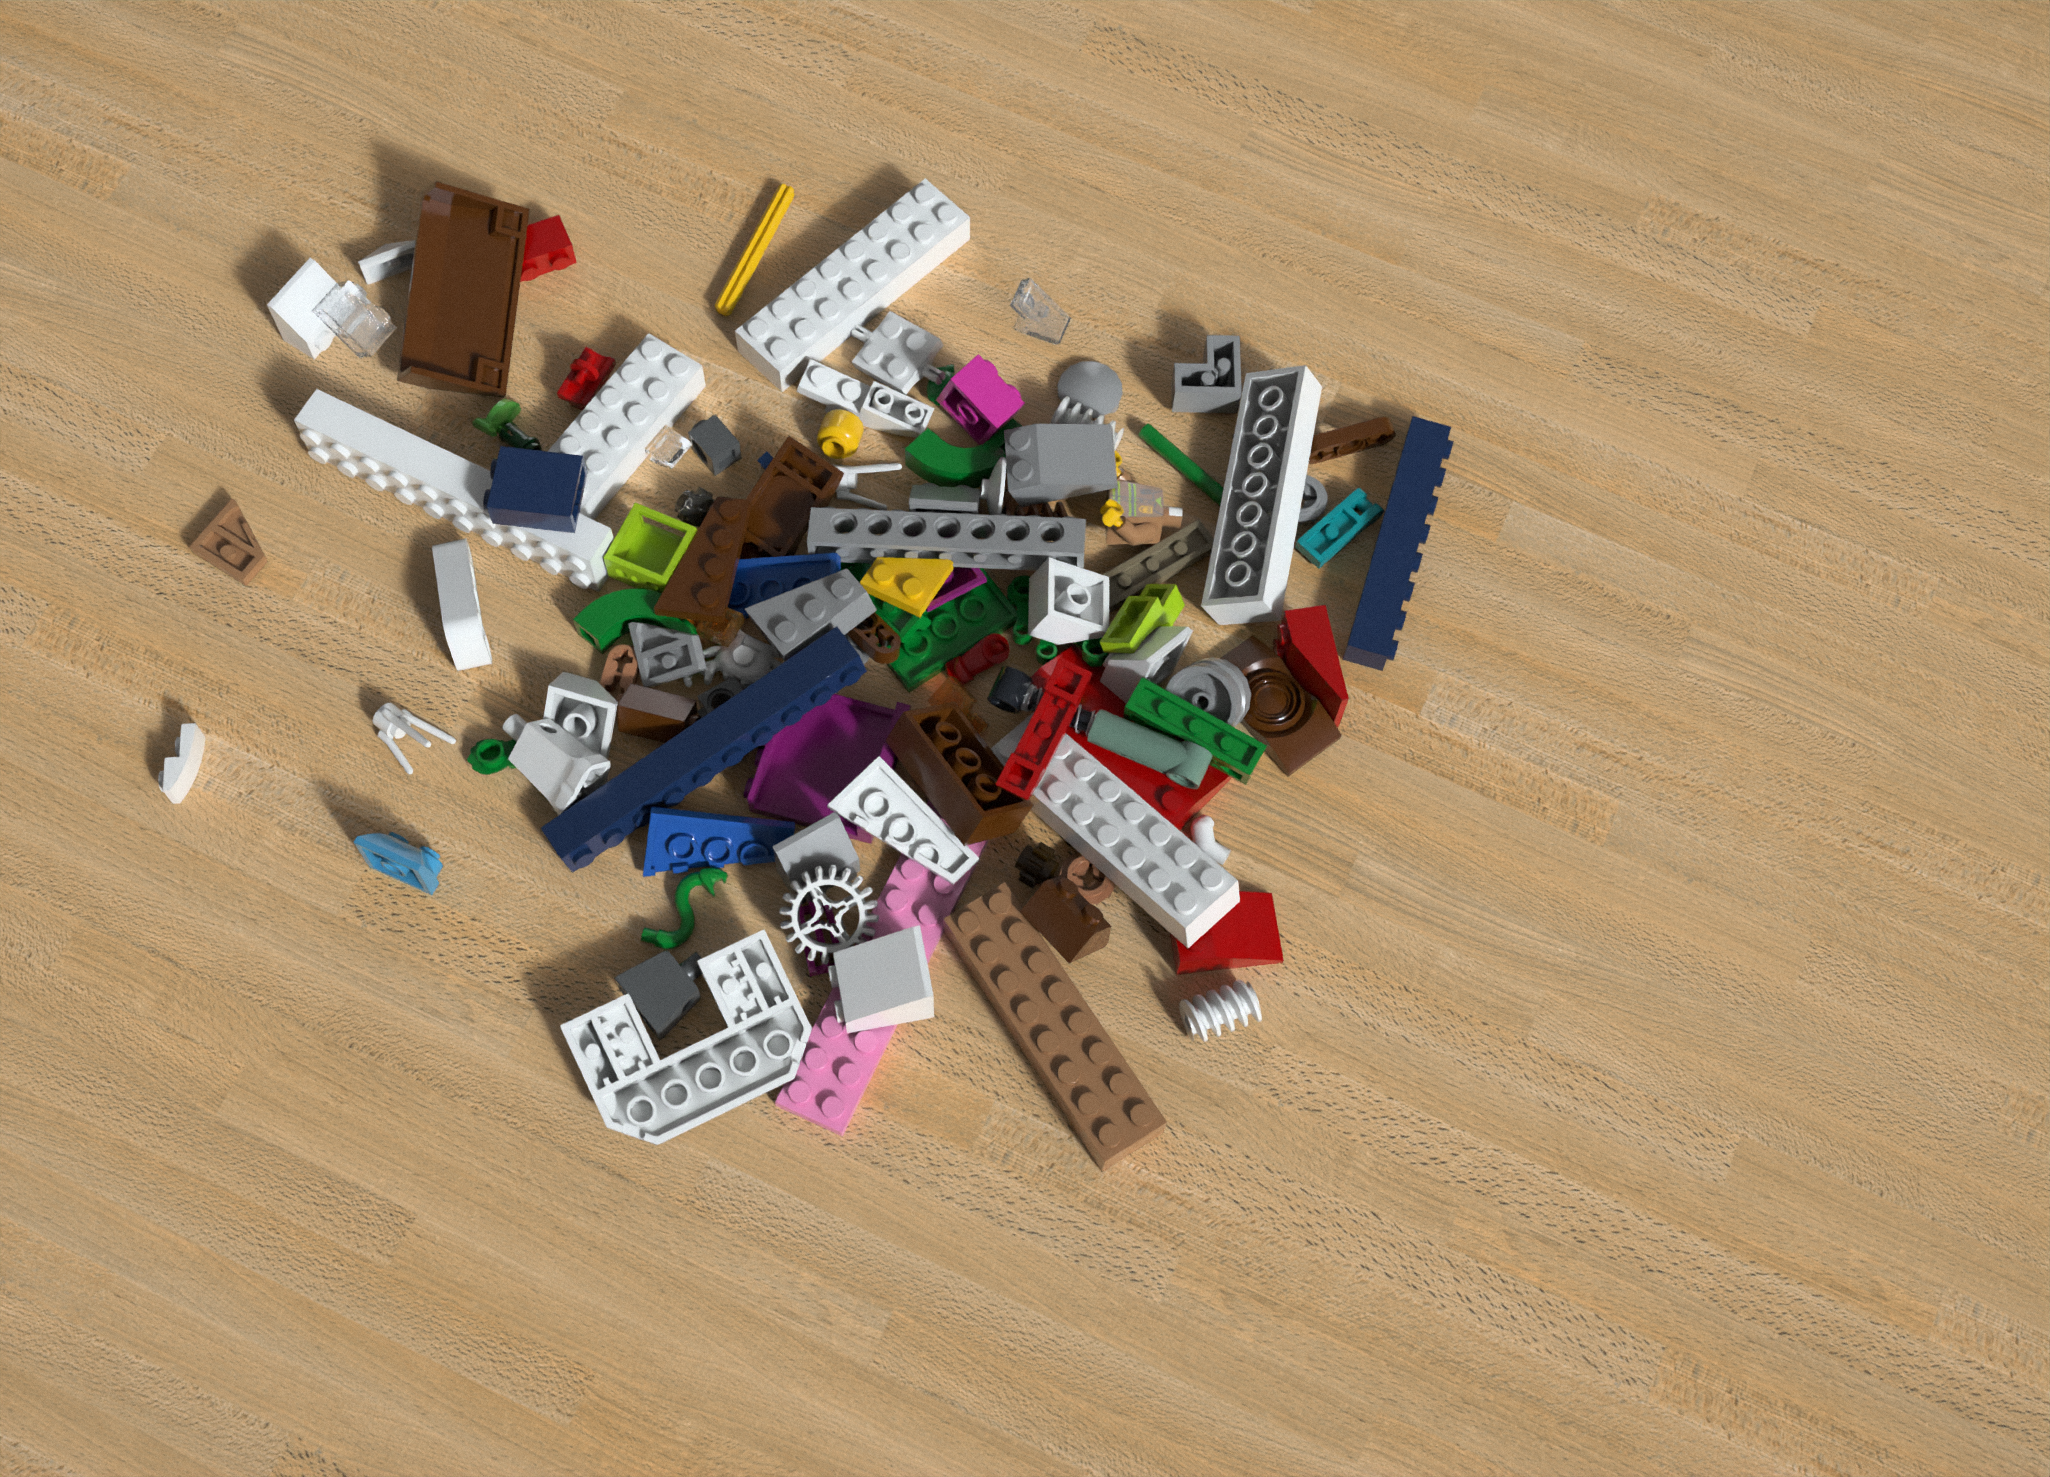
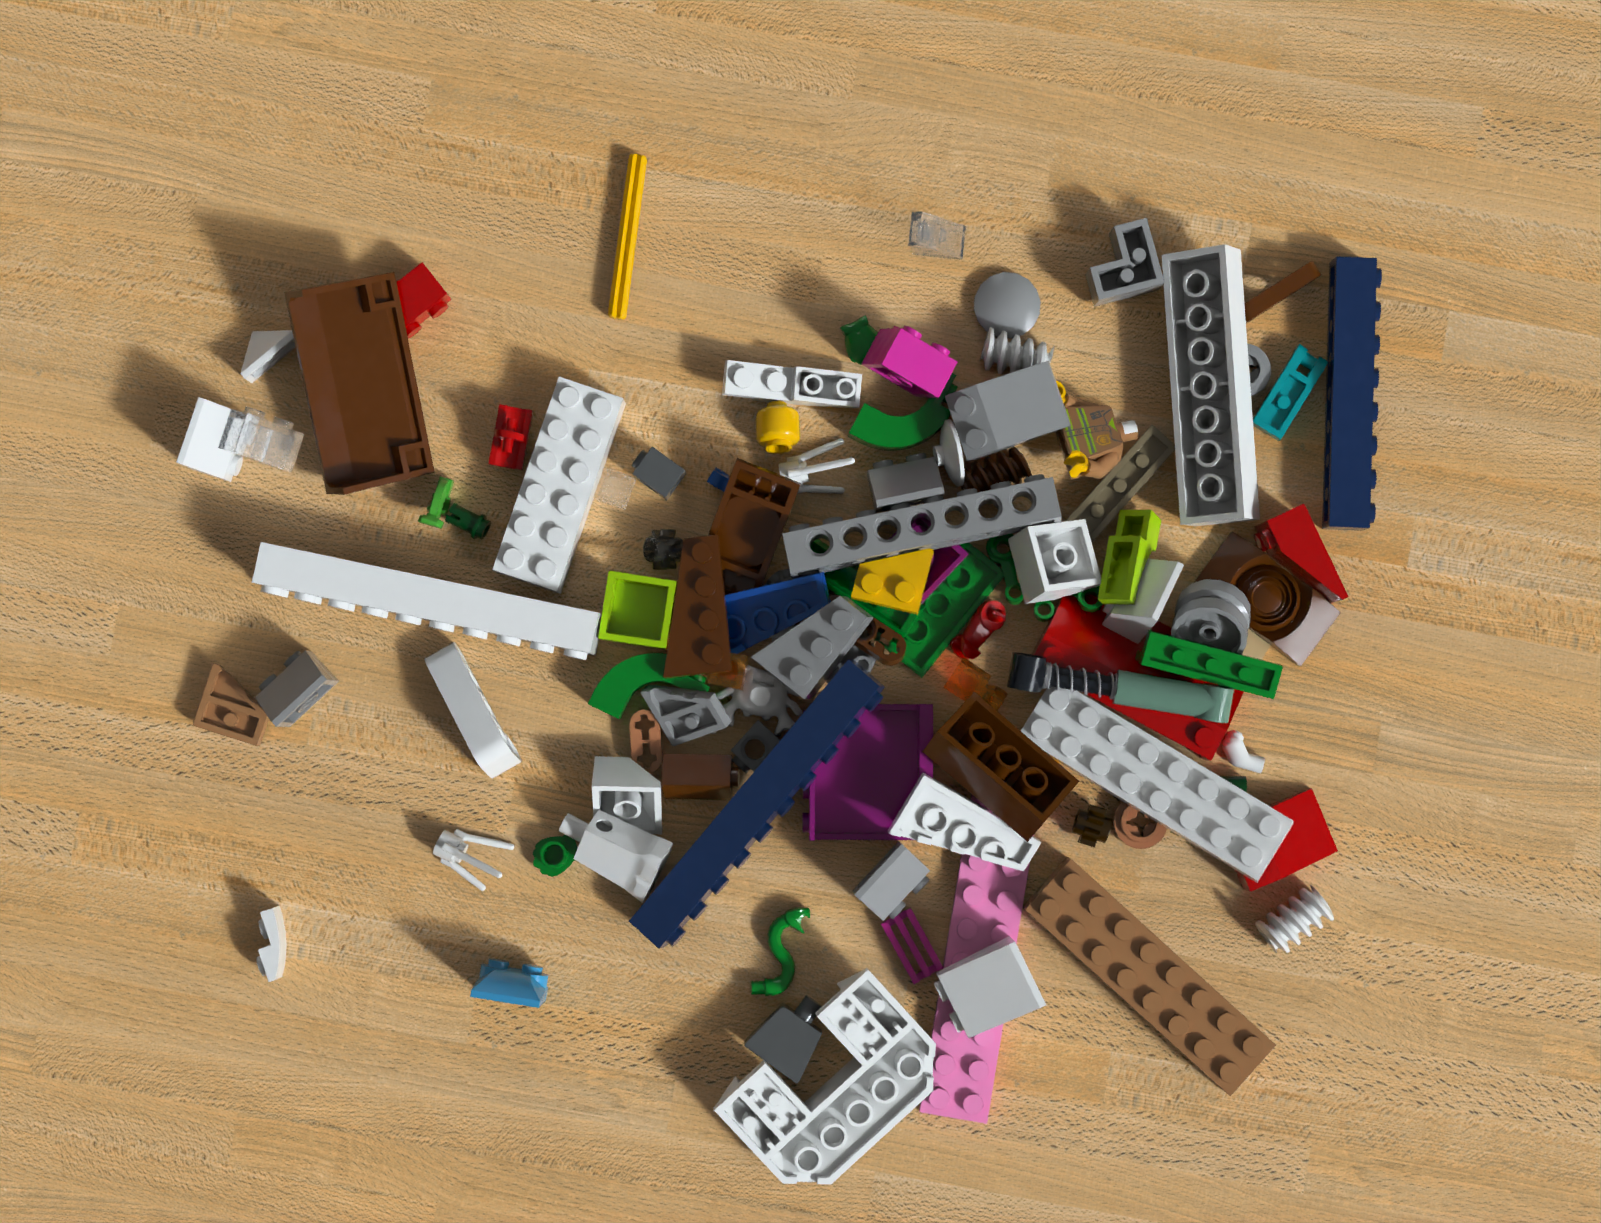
camera: 15 degrees left, 20 degrees up
(301, 541) = (295, 689): none -> light grey slope
(536, 489) = (516, 598): dark blue brick -> none
(703, 839) = (769, 889): blue wing -> none
(812, 886) = (920, 917): white gear -> none
(853, 284) = (741, 253): white brick -> none
(897, 353) = (807, 321): white plate -> none
(1045, 730) = (1073, 714): red slope -> none
(1067, 919) = (1137, 882): reddish brown slope -> none
(1182, 463) = (1121, 363): green piece -> none

